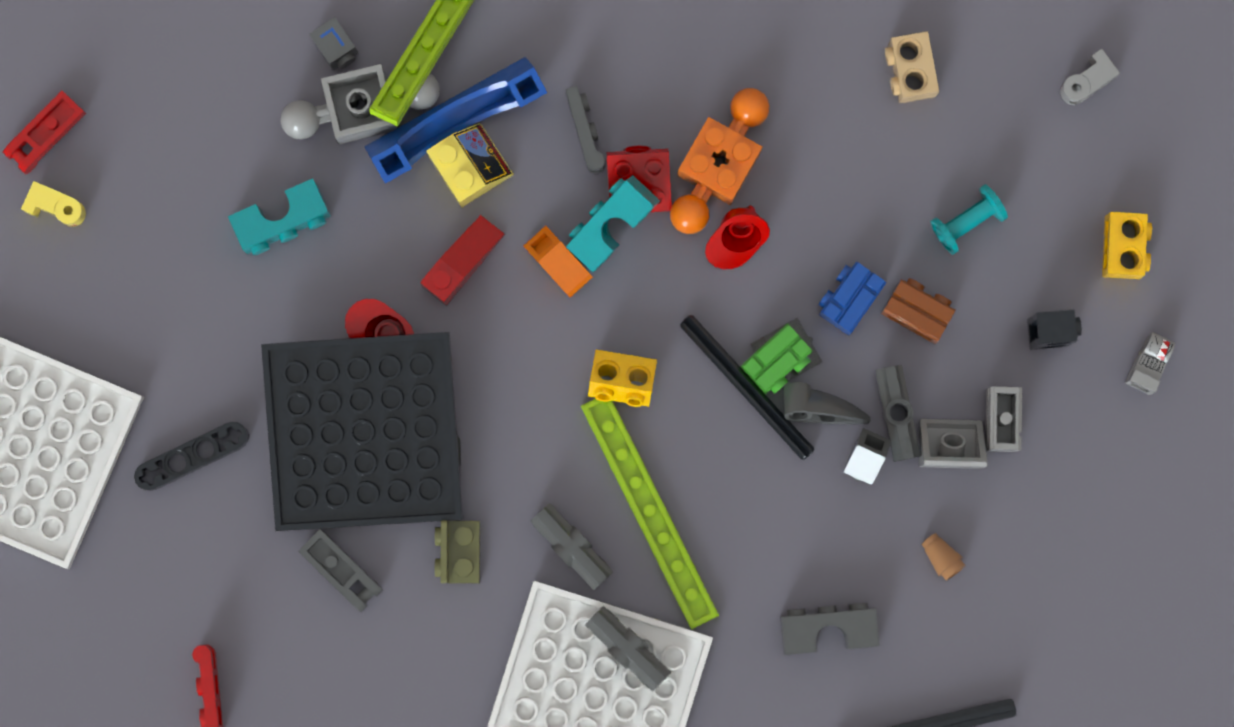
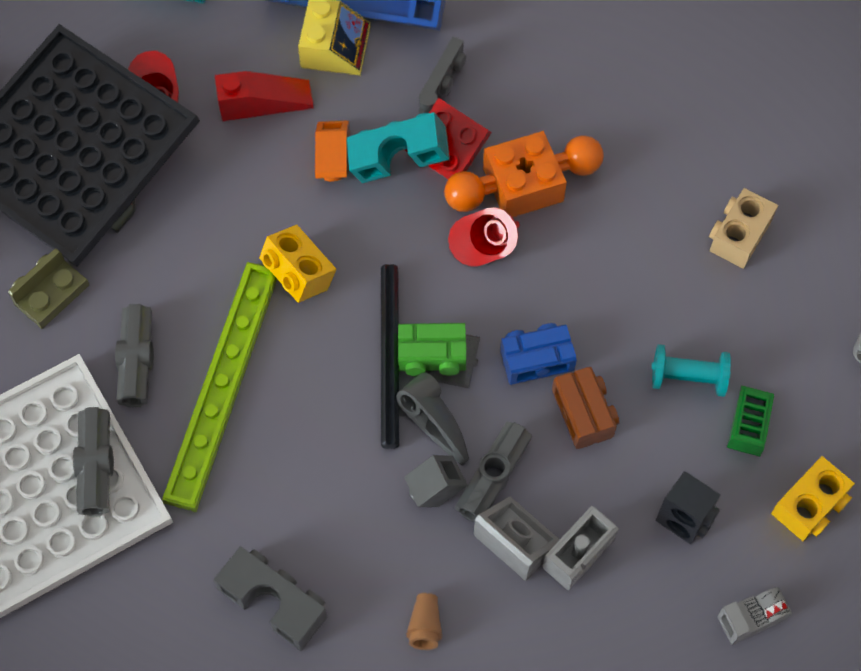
camera: 40 degrees right, 20 degrees down
(1031, 233) = (747, 443): none -> green slope

